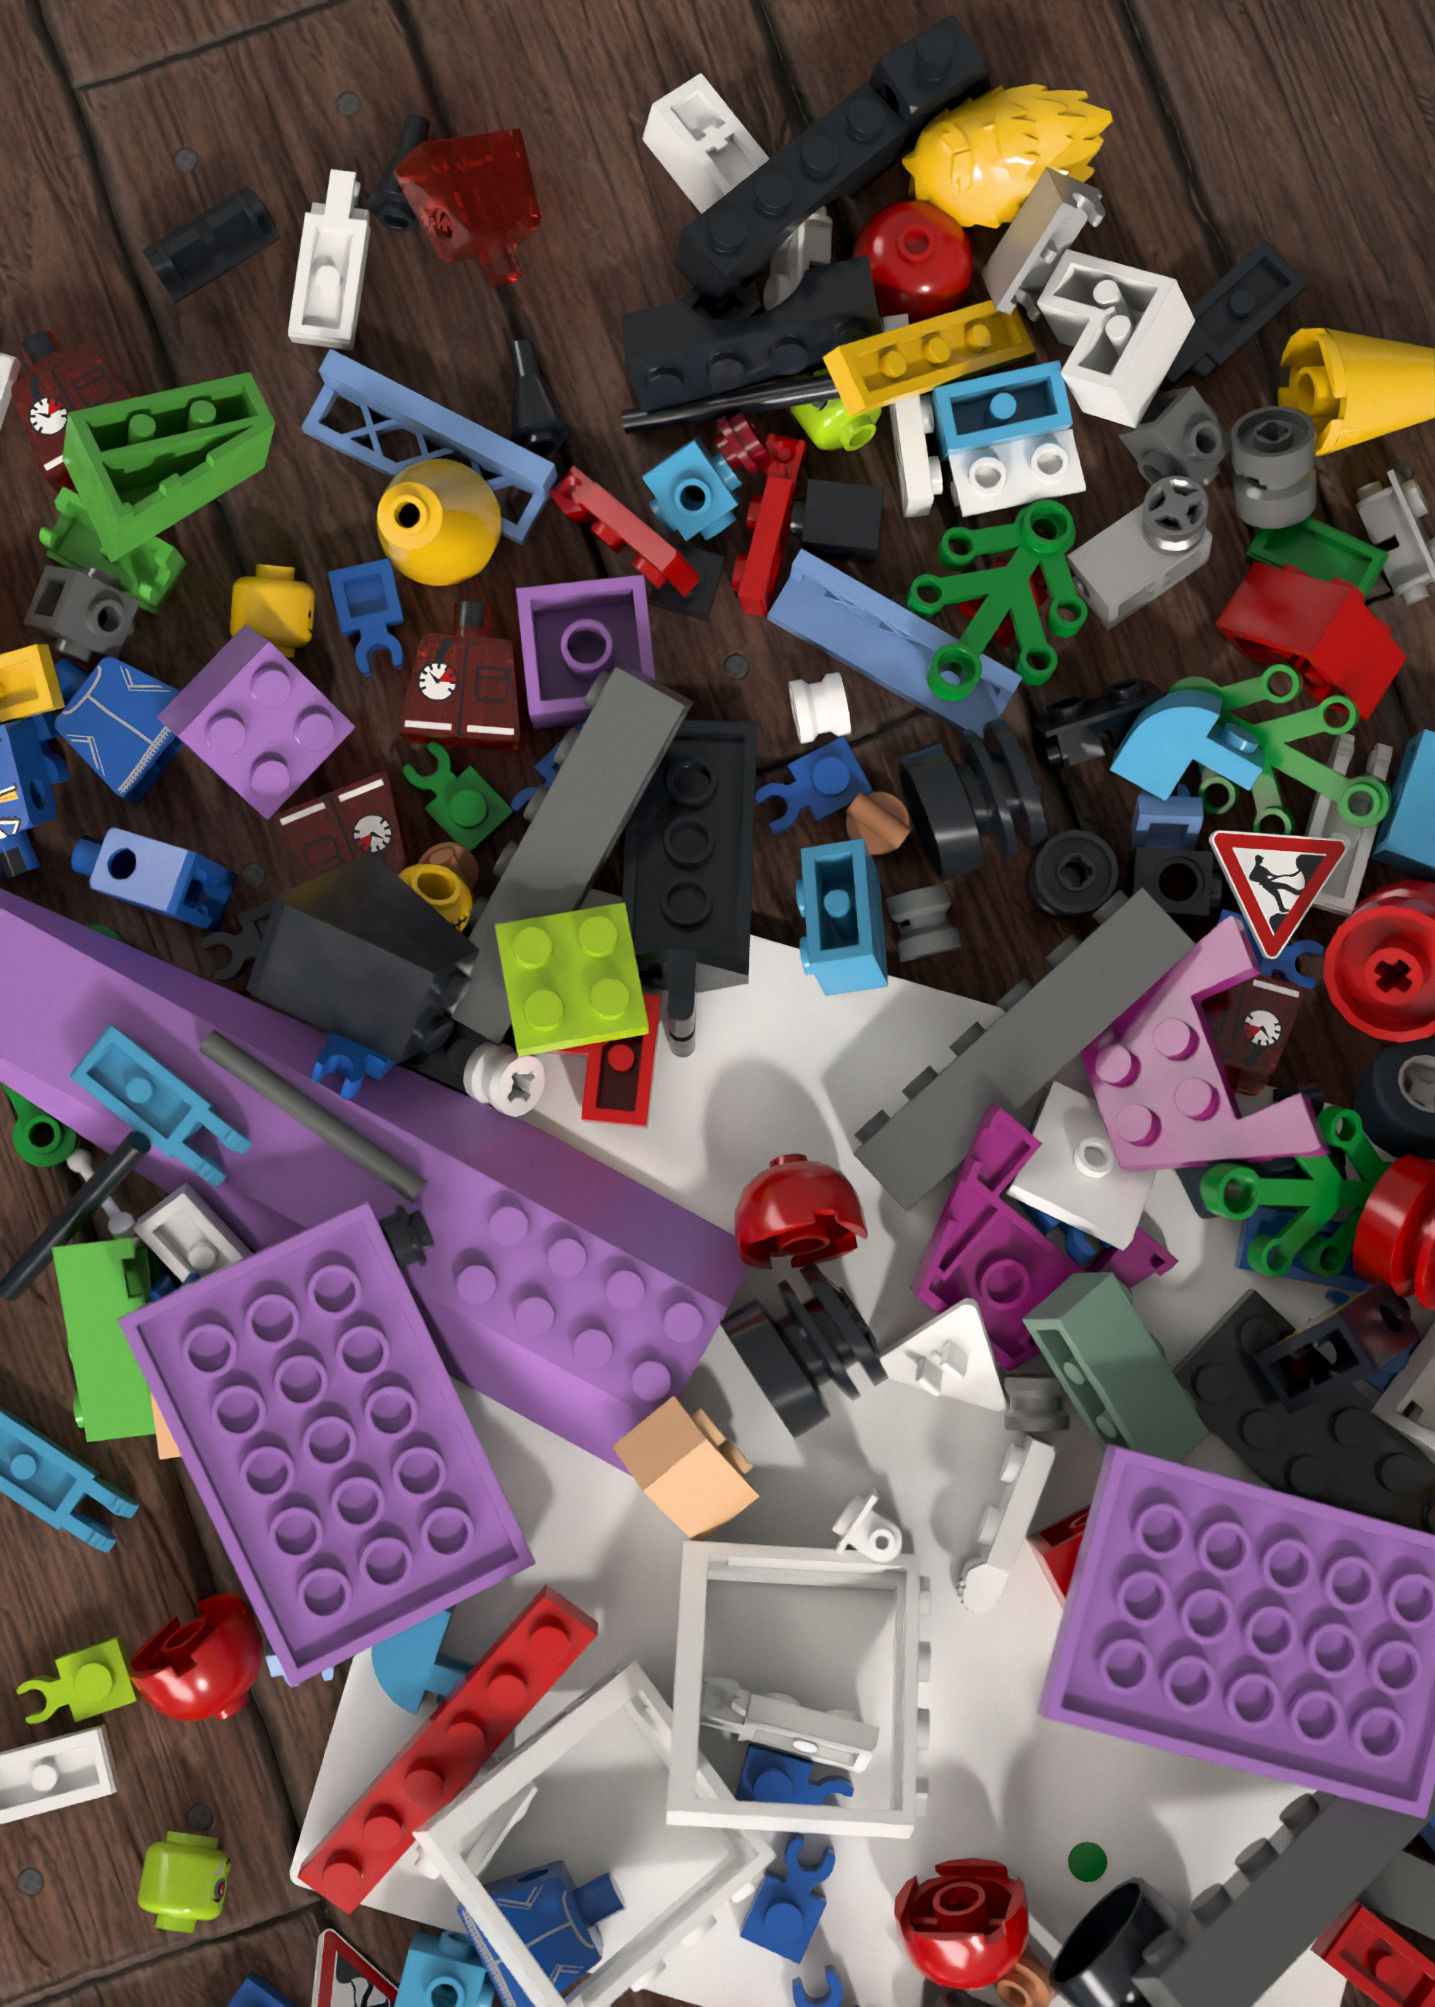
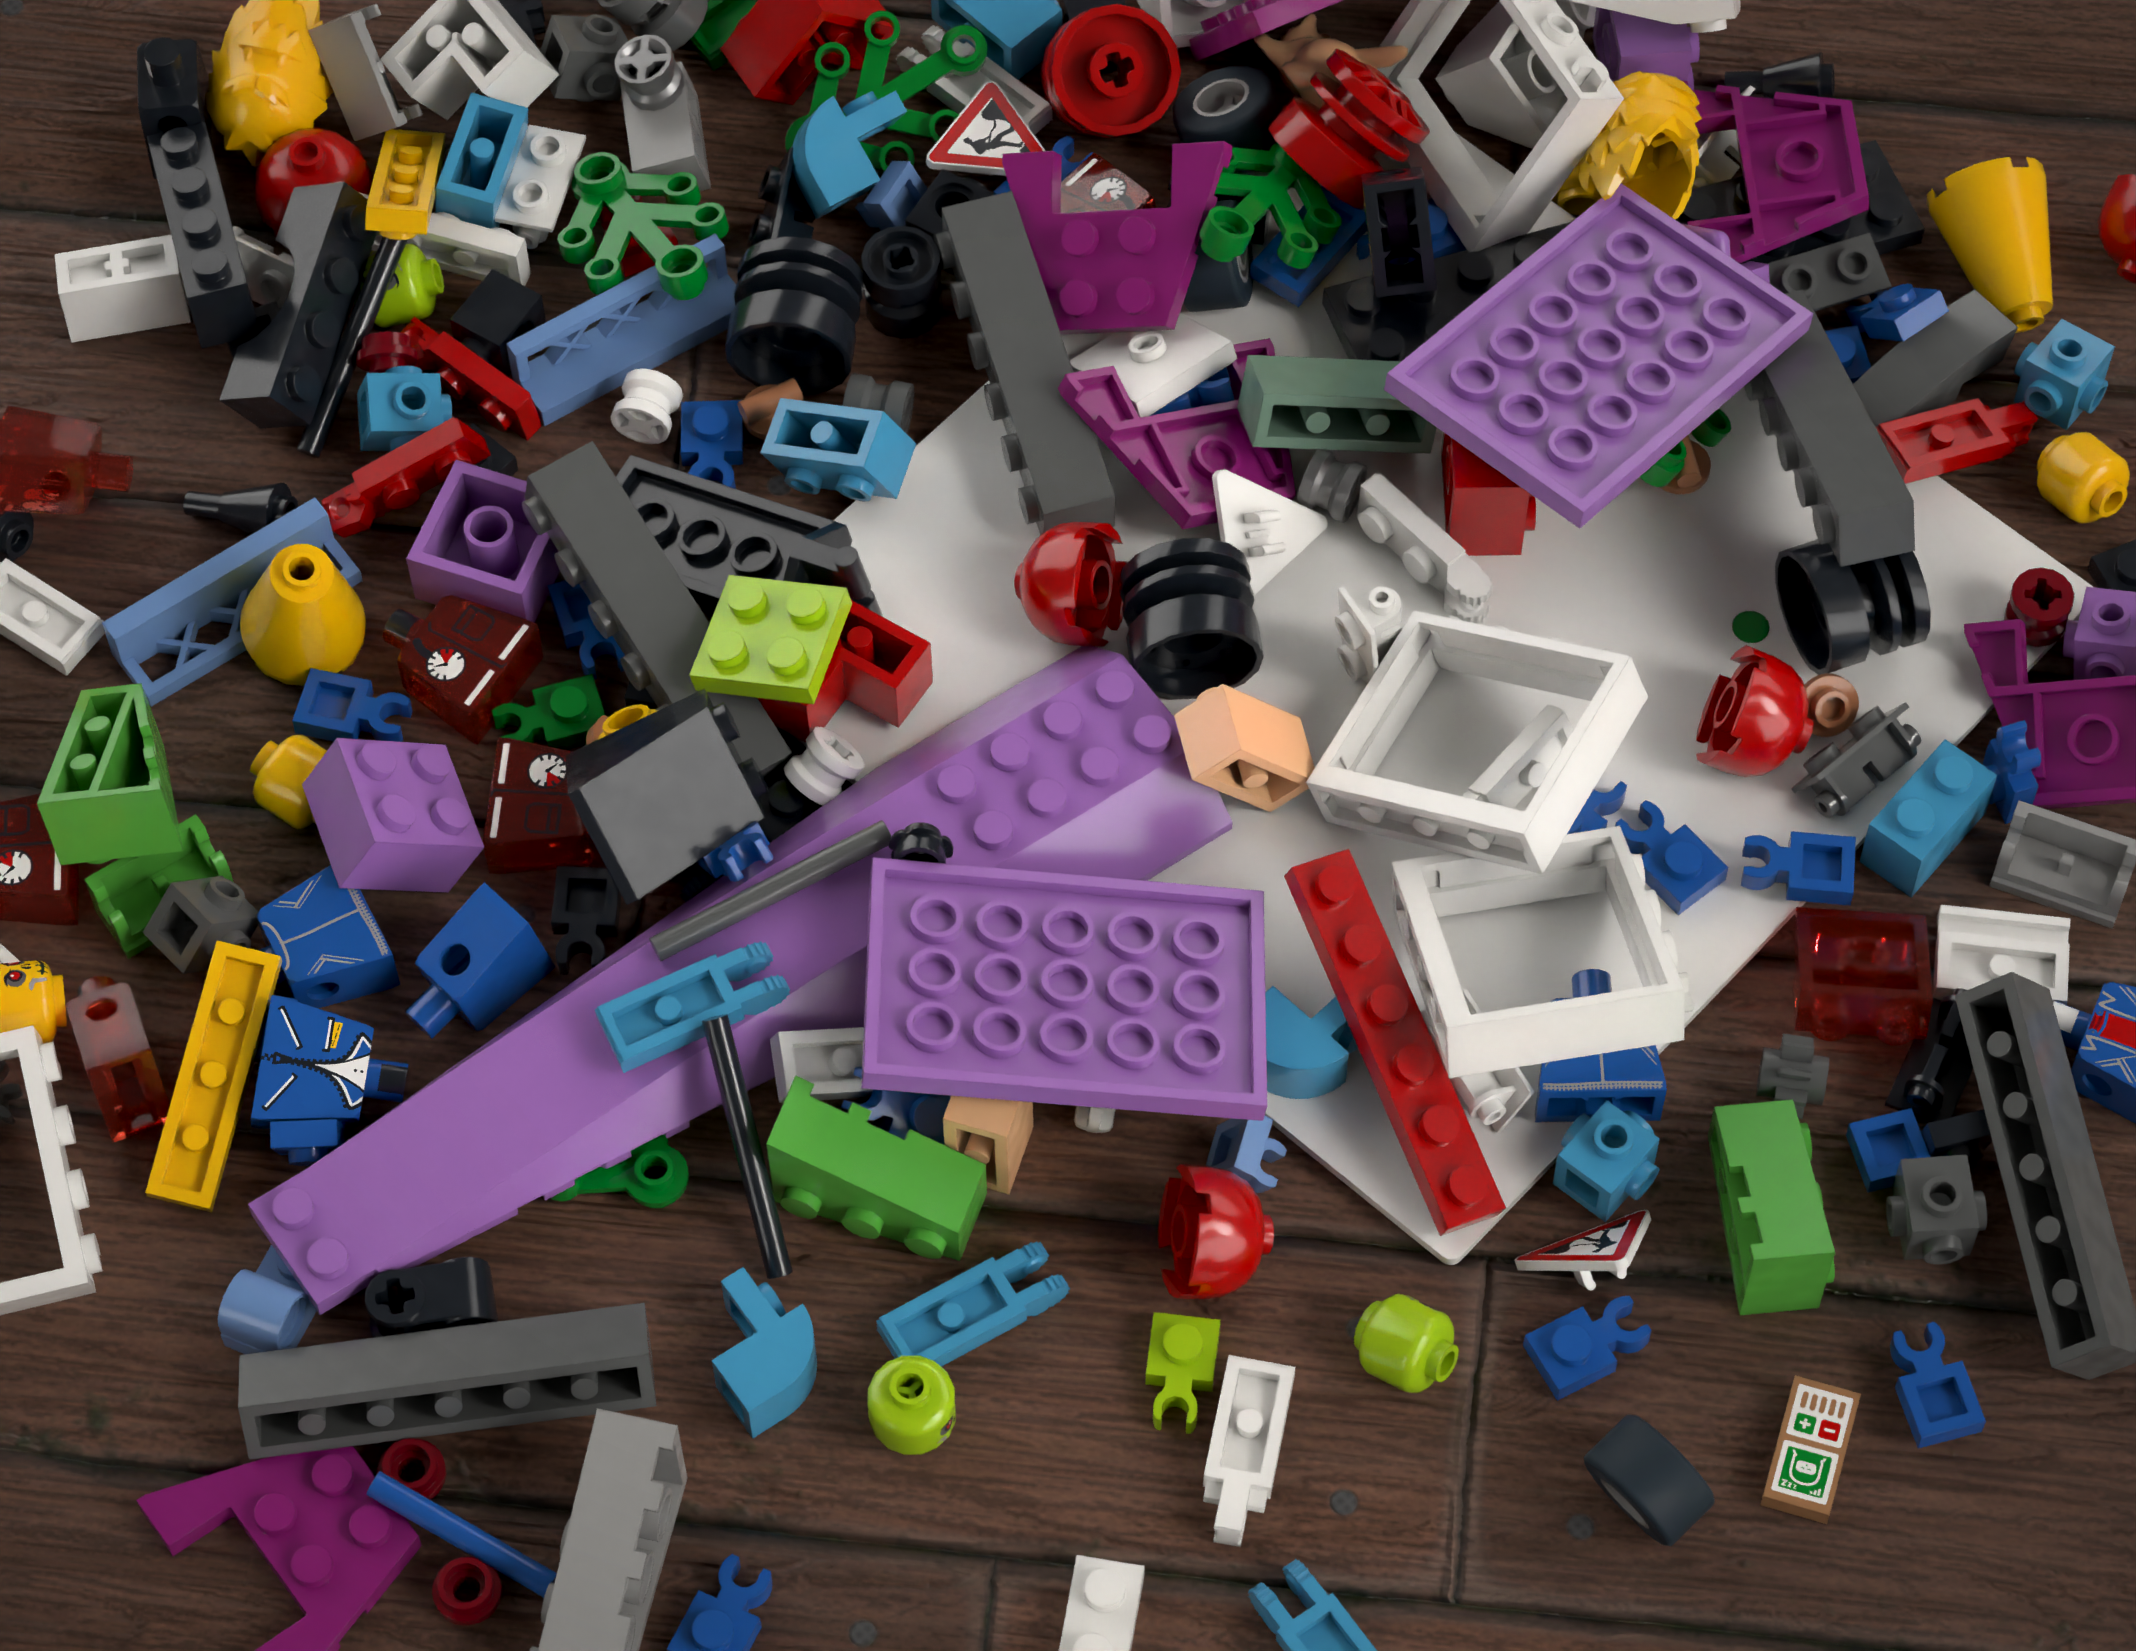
camera: 60 degrees left, 25 degrees down
(121, 1223) = (698, 1160): white hinge -> none

